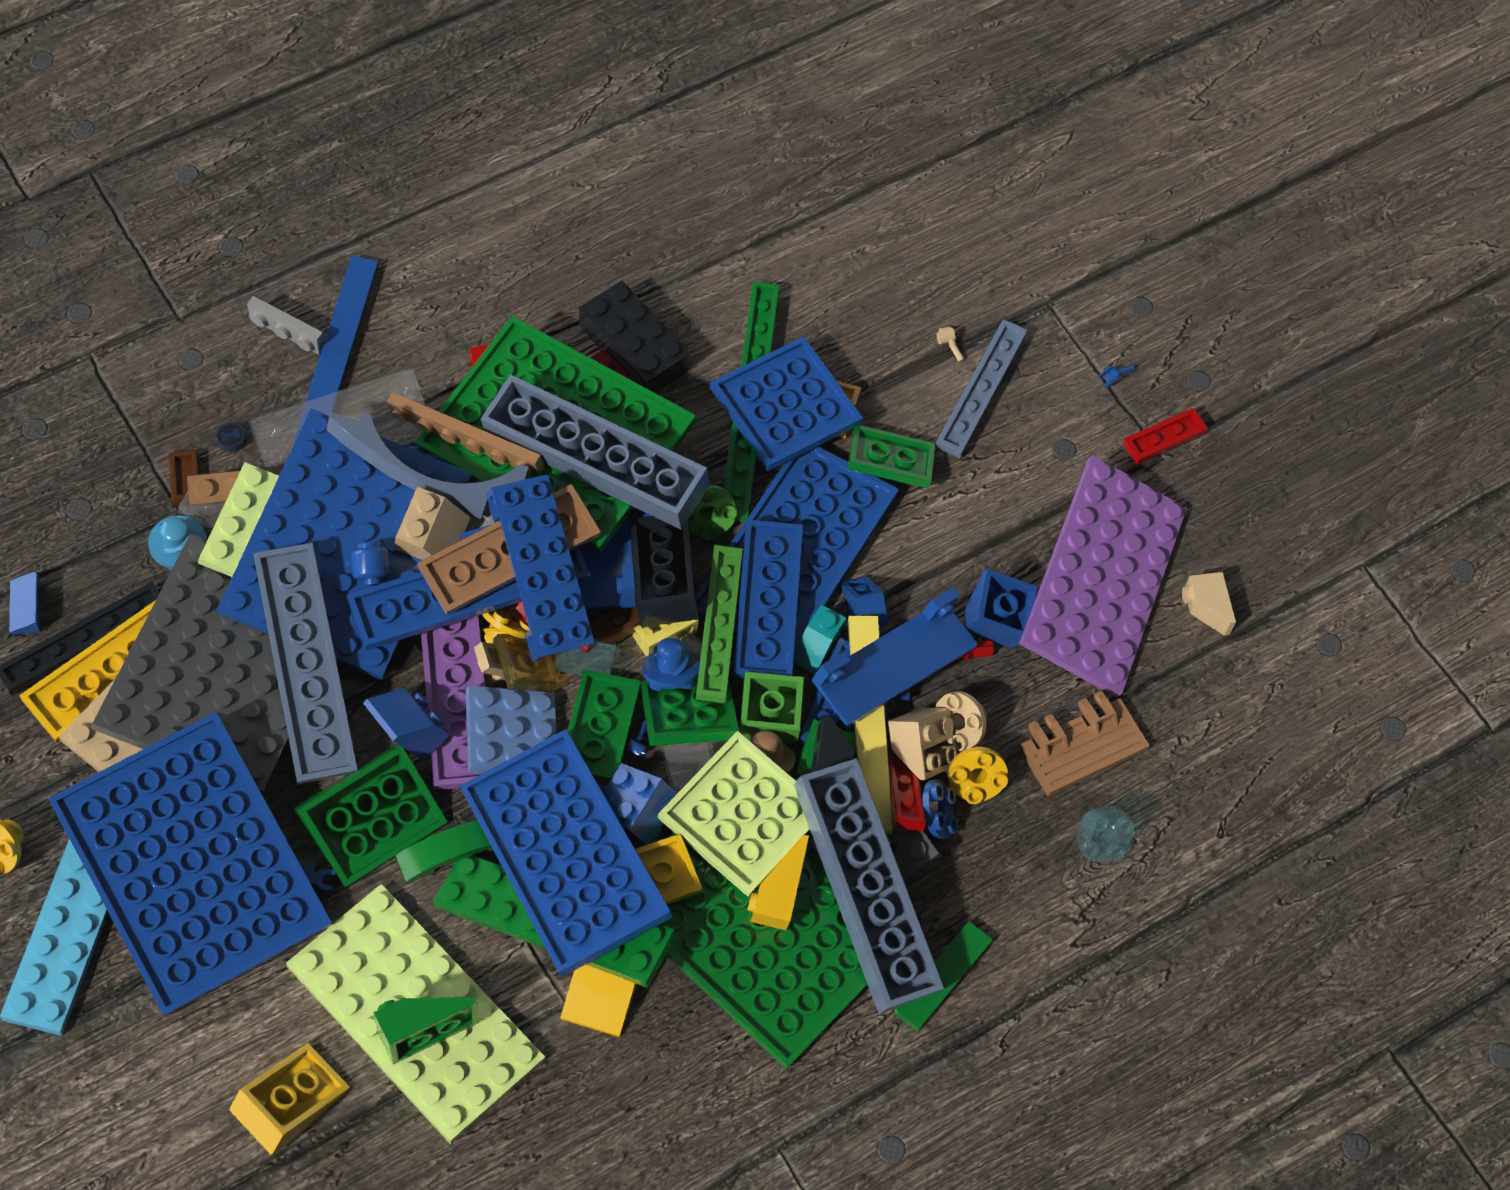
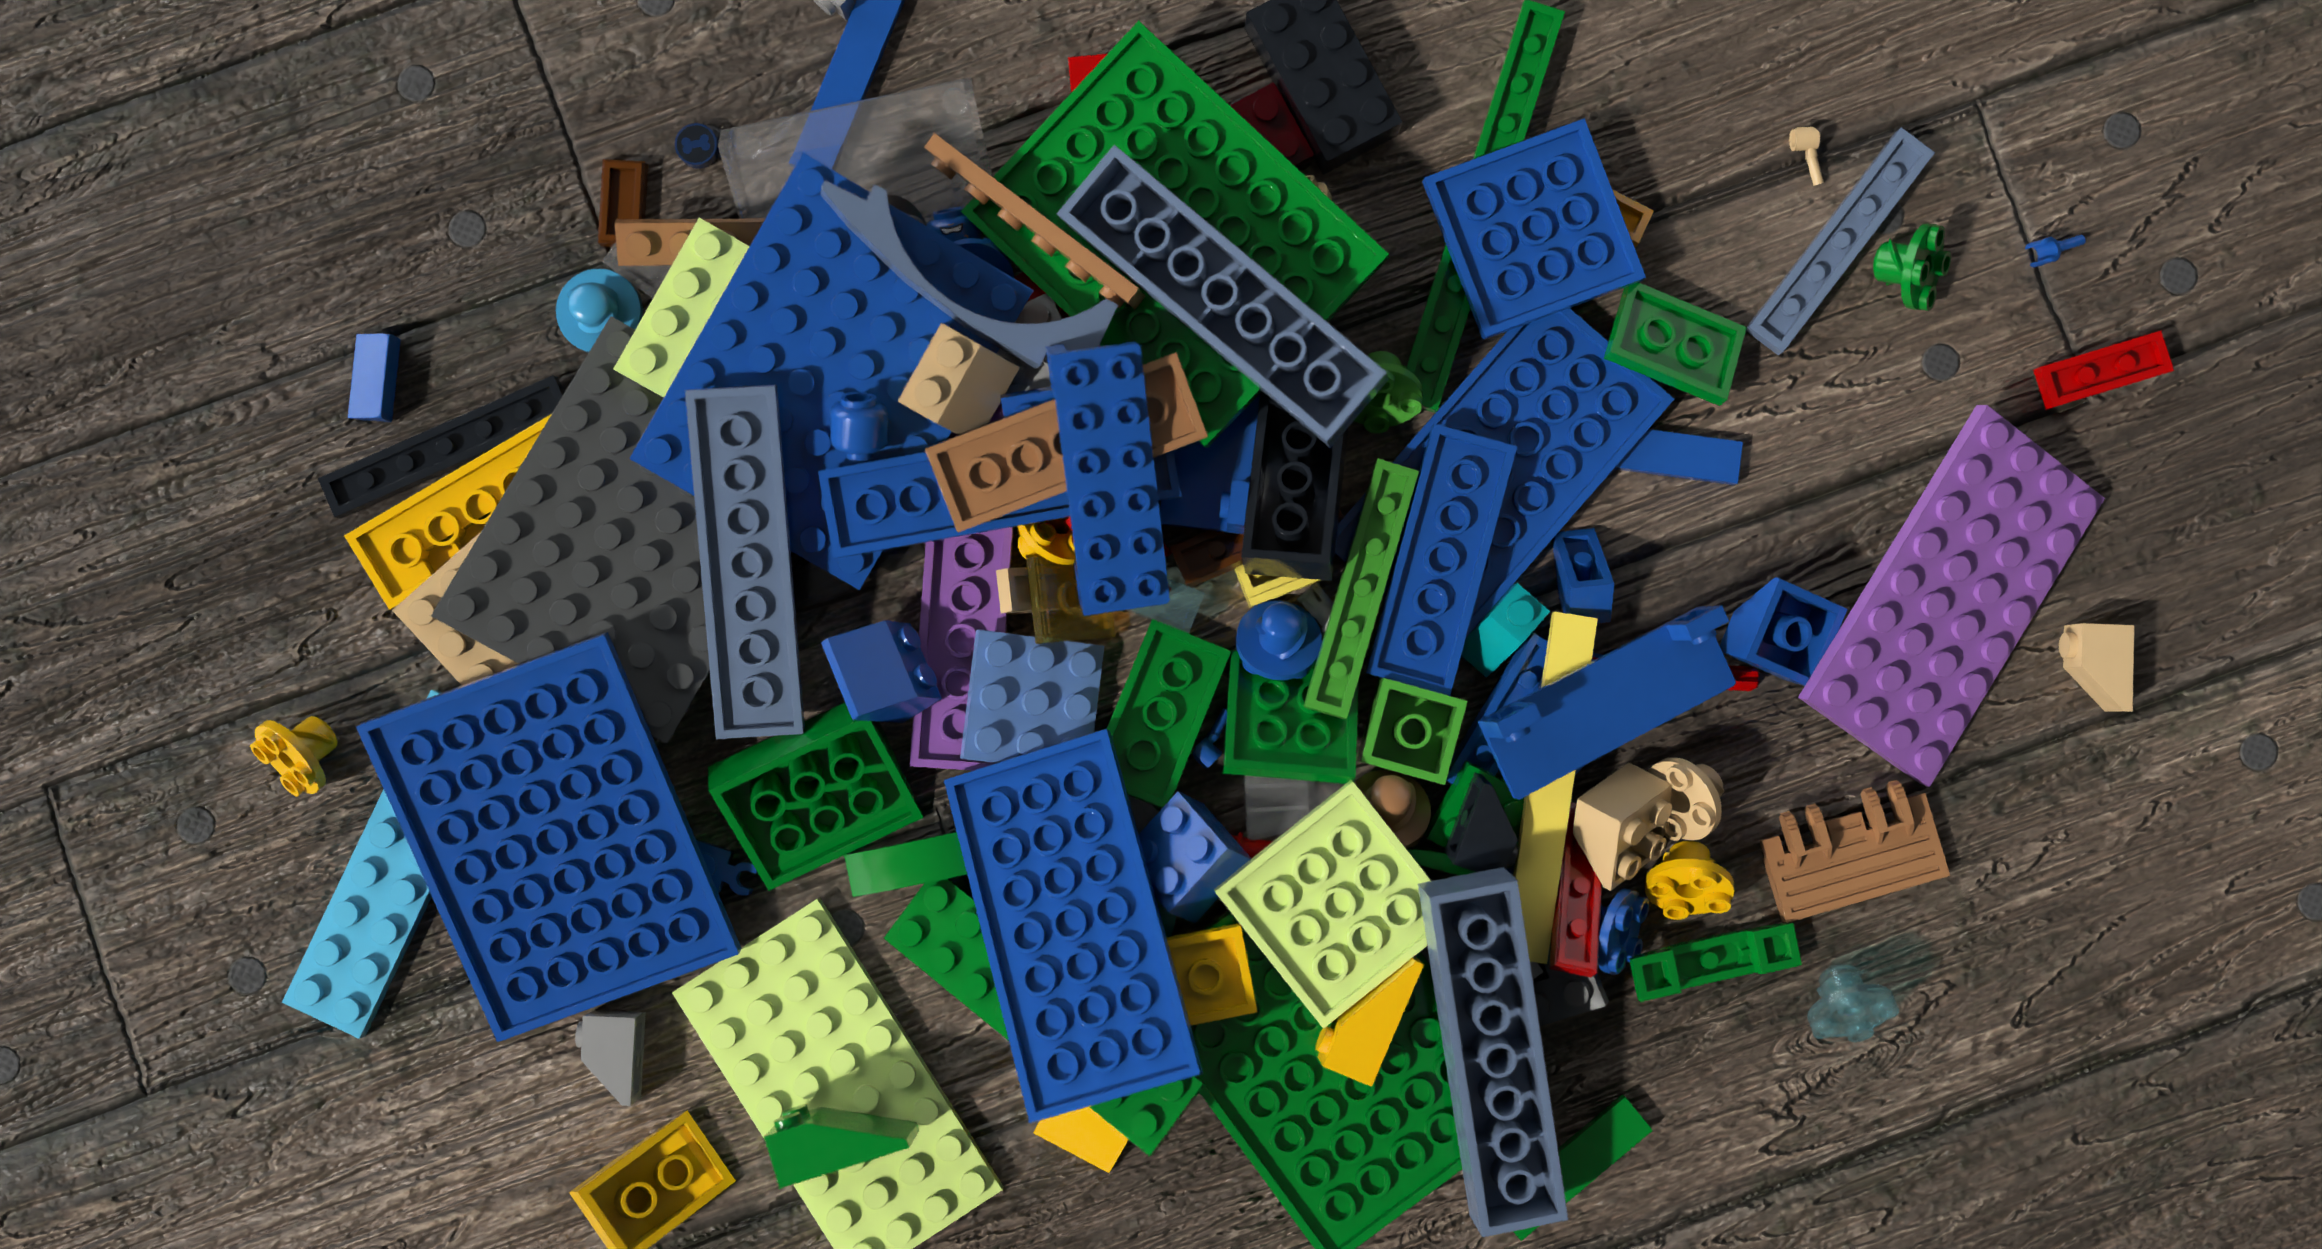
camera: 15 degrees right, 25 degrees up
(249, 1005) = (614, 1051): none -> light grey slope
(913, 525) = (1685, 457): none -> blue tile
(1007, 824) = (1714, 959): none -> green slope
(1031, 391) = (1914, 265): none -> green plate

